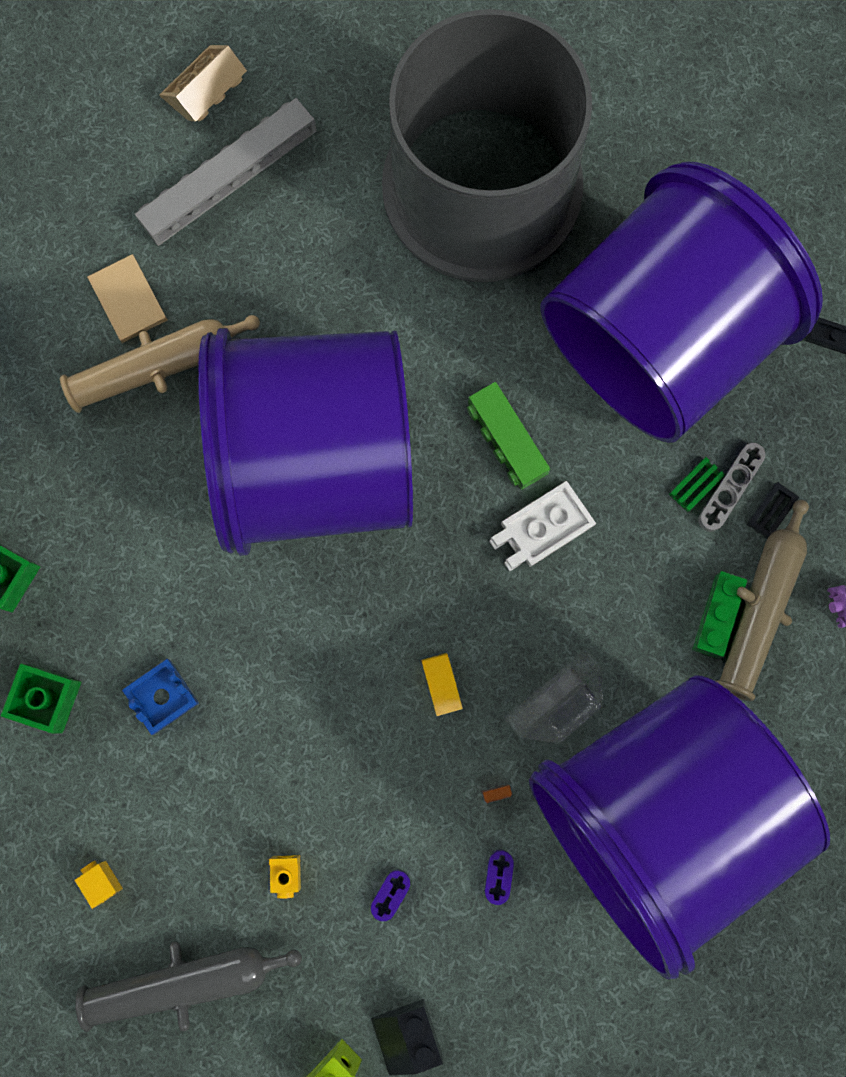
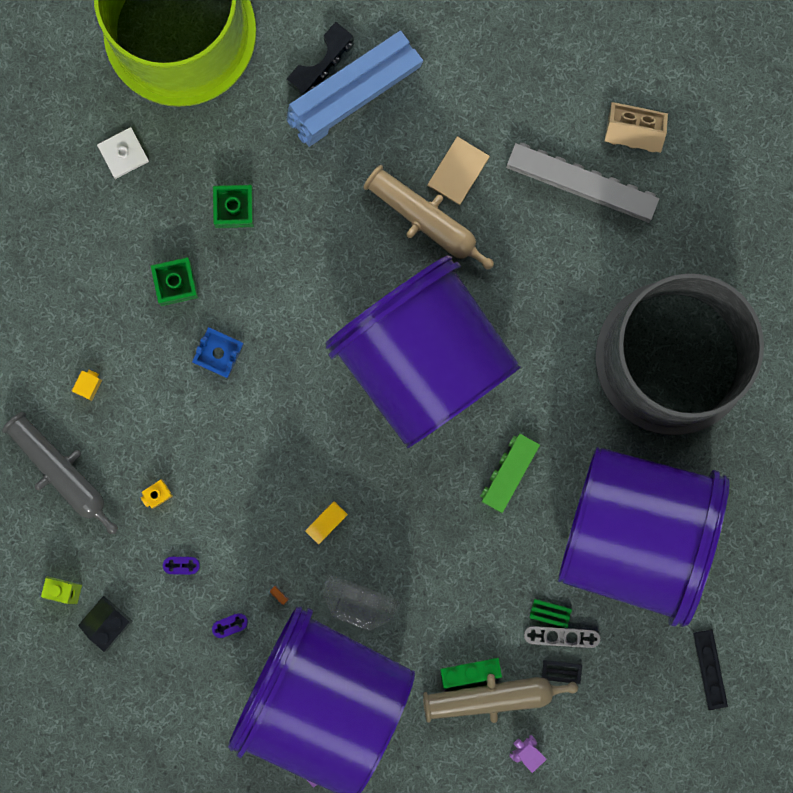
camera: 60 degrees right, 5 degrees up
(543, 526) = (464, 530): white tile -> none

